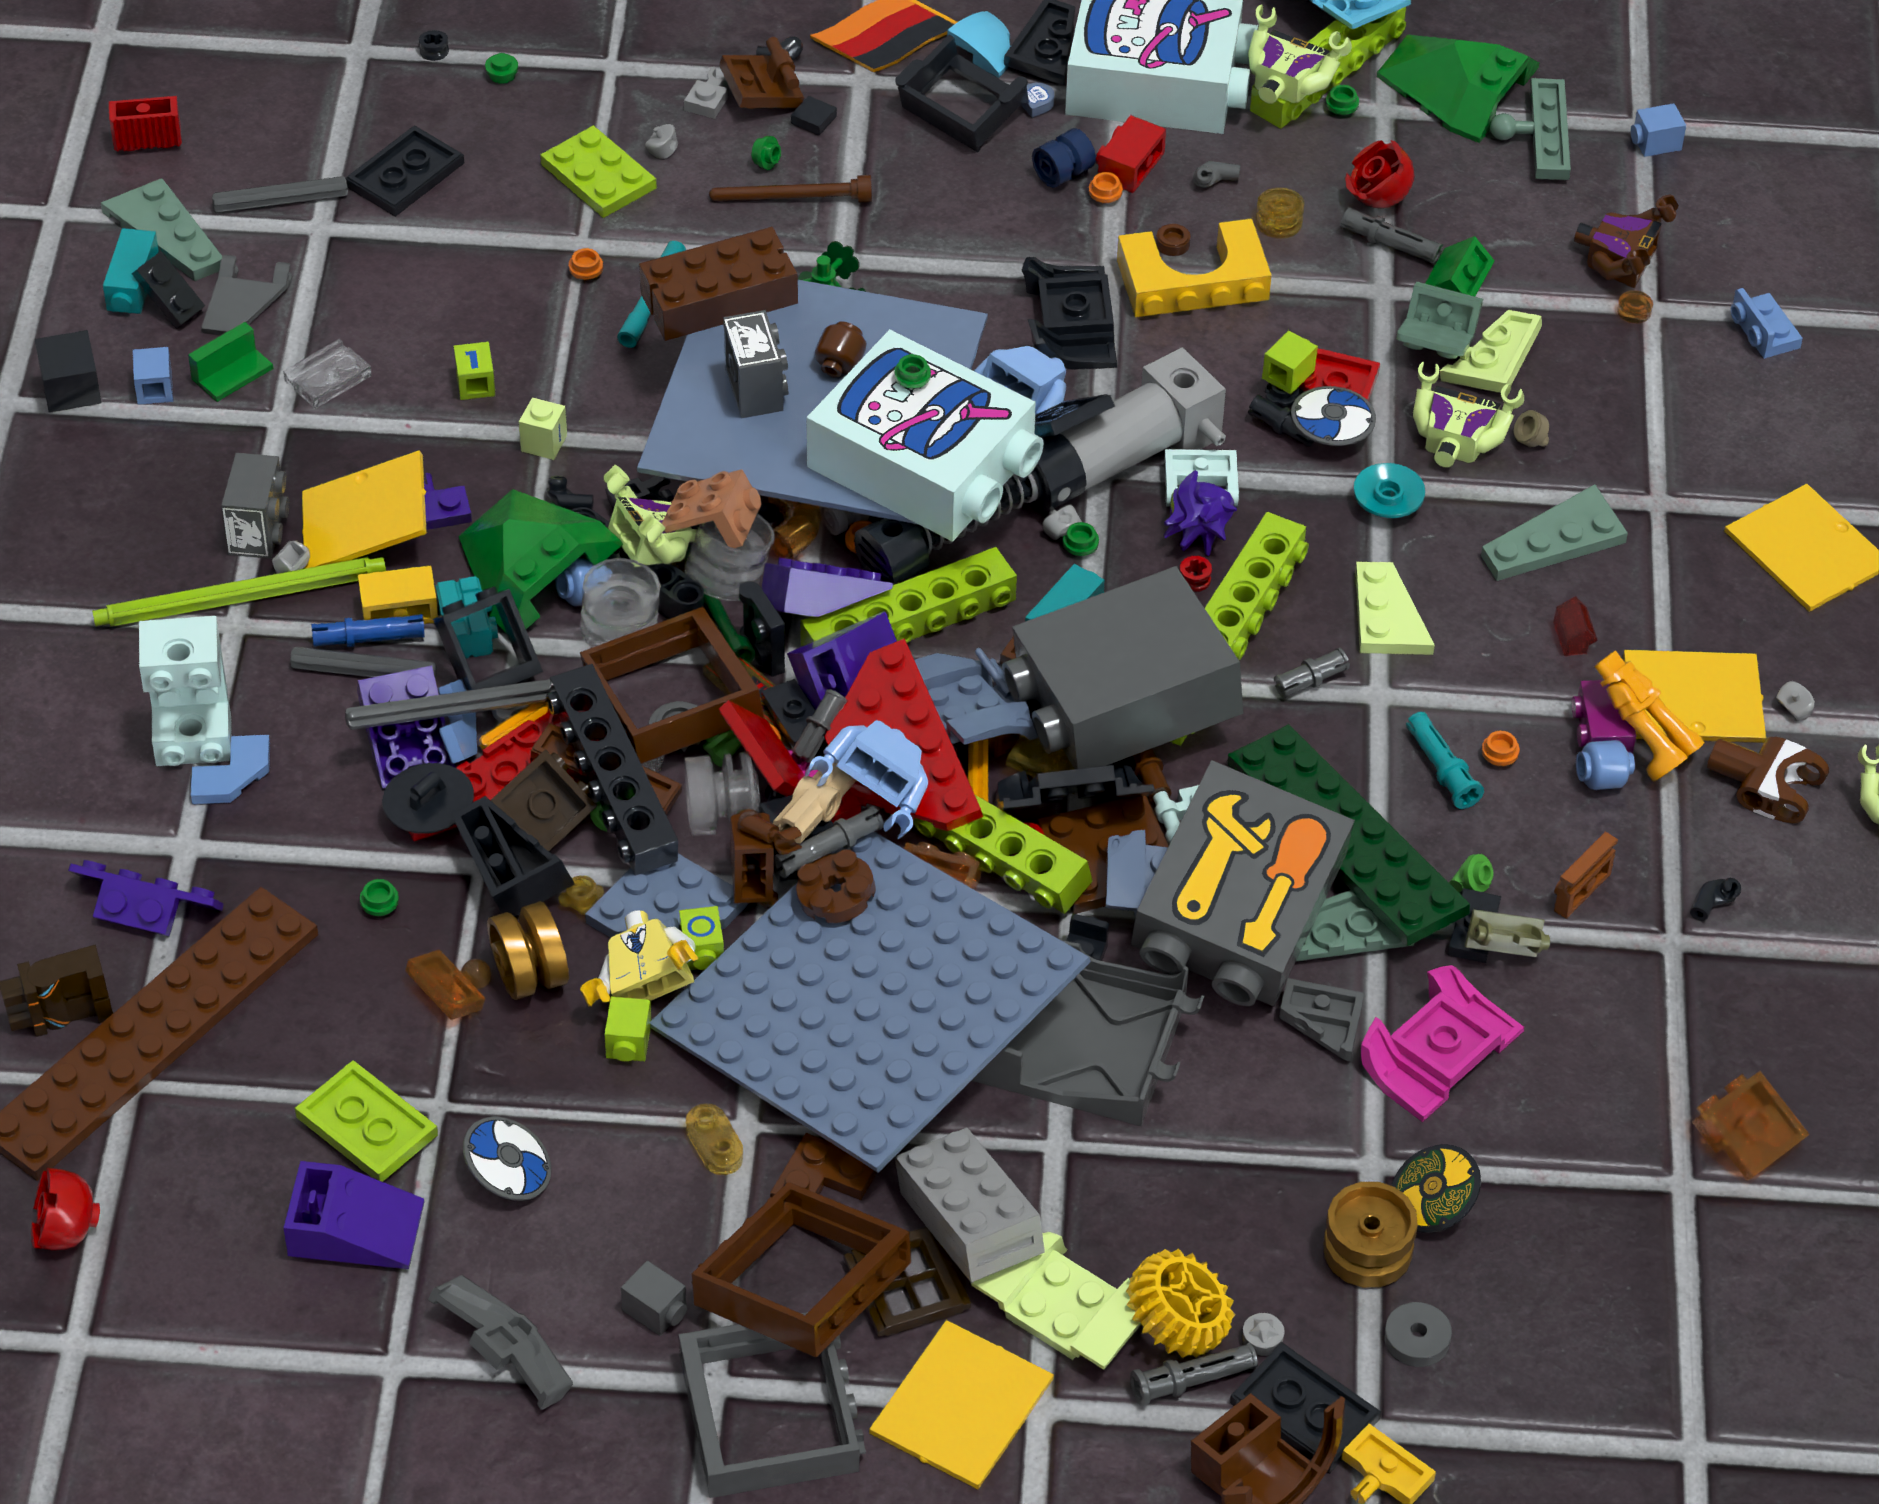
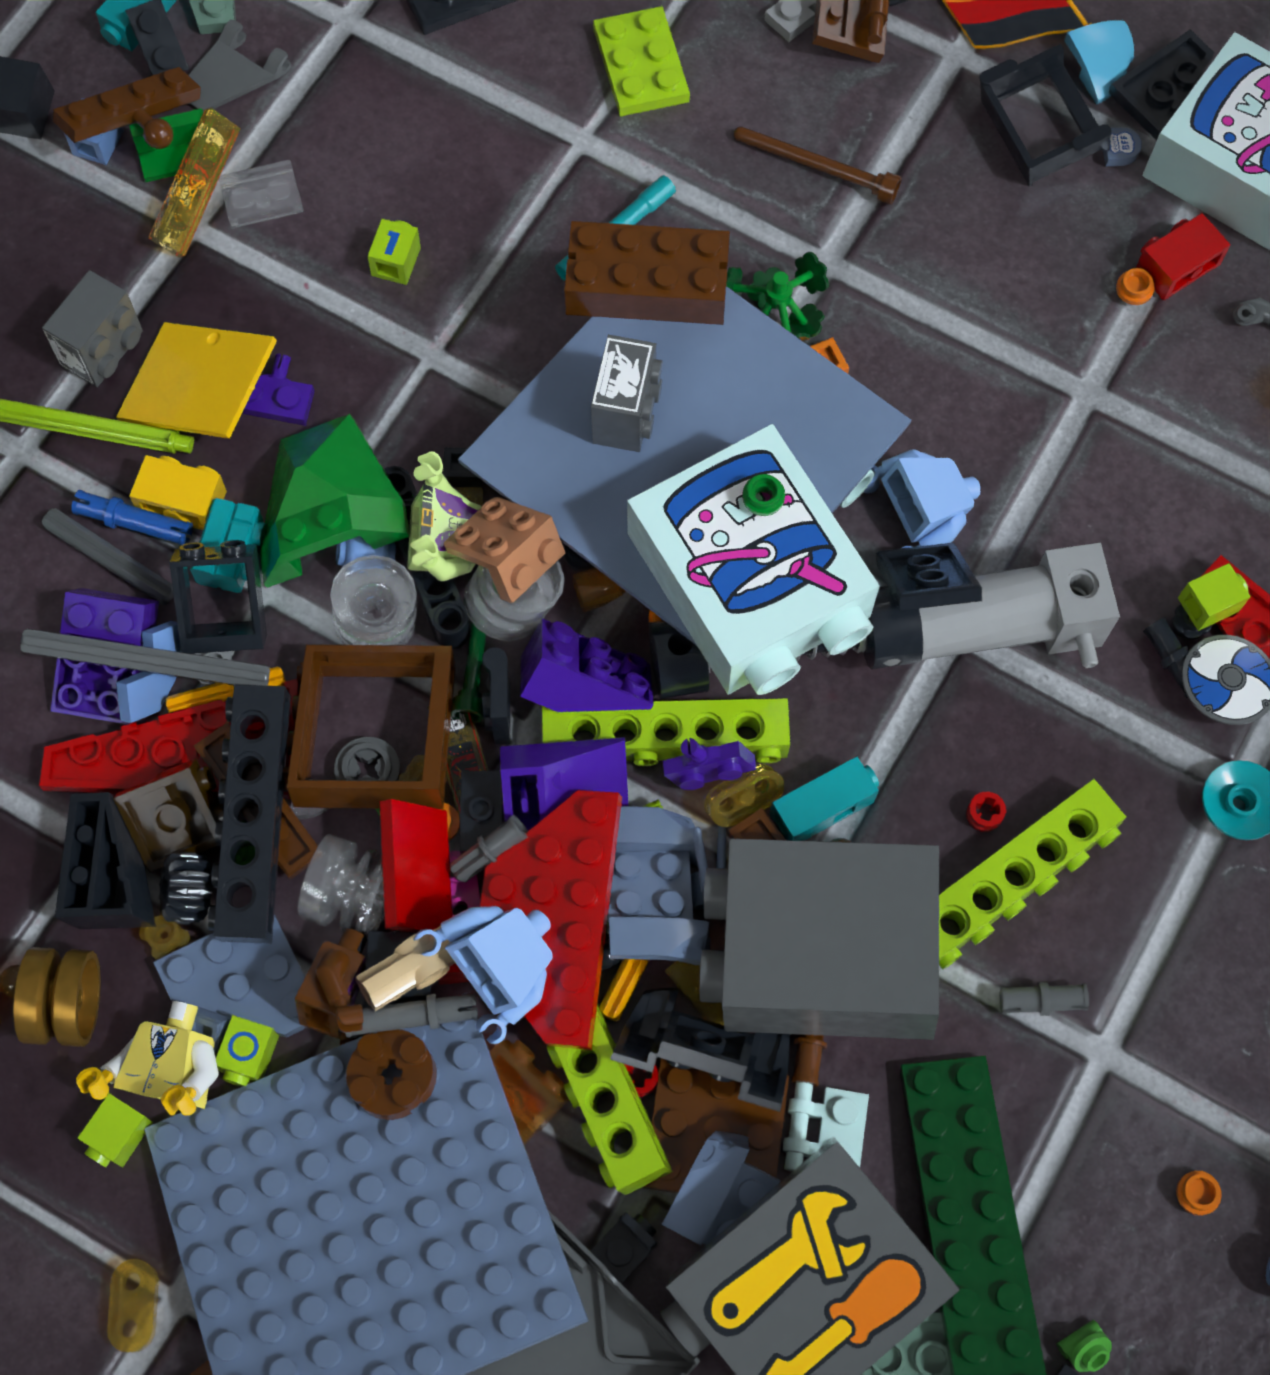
camera: 25 degrees right, 20 degrees up
(182, 336) = (130, 104): none -> reddish brown plate
(269, 379) = (194, 183): none -> clear yellow tile
(291, 558) = (106, 400): light grey piece -> none
(426, 797) = (71, 754): black shield -> none
(543, 428) = (421, 350): yellowish green brick -> none
(564, 497) = (403, 436): black arm -> none
(585, 264) = (569, 168): orange plate -> none
(585, 845) = (185, 888): none -> black gear
(663, 141) = (721, 51): light grey piece -> none
(766, 152) = (813, 105): green plate -> none
(813, 115) = (885, 78): black tile -> none
(840, 348) = (729, 407): reddish brown head -> none
(958, 611) = (708, 764): none -> dark purple plate
(994, 629) = (743, 796): none -> clear yellow plate
(1059, 521) = (879, 688): light grey piece -> none
(1065, 156) = (1113, 233): dark blue wheel -> none
(1074, 314) = (1023, 429): black piece -> none
(1081, 539) = (888, 717): green plate -> none
(1161, 290) = (1127, 438): yellow arch -> none
(1173, 240) = (1174, 377): reddish brown tile -> none
(1198, 511) = (1022, 746): dark purple hair -> none
(1212, 466) = (1055, 681): light aqua plate -> none
(1387, 614) = (1164, 952): yellowish green wing -> none
(1451, 771) = (1129, 1201): teal pin -> none

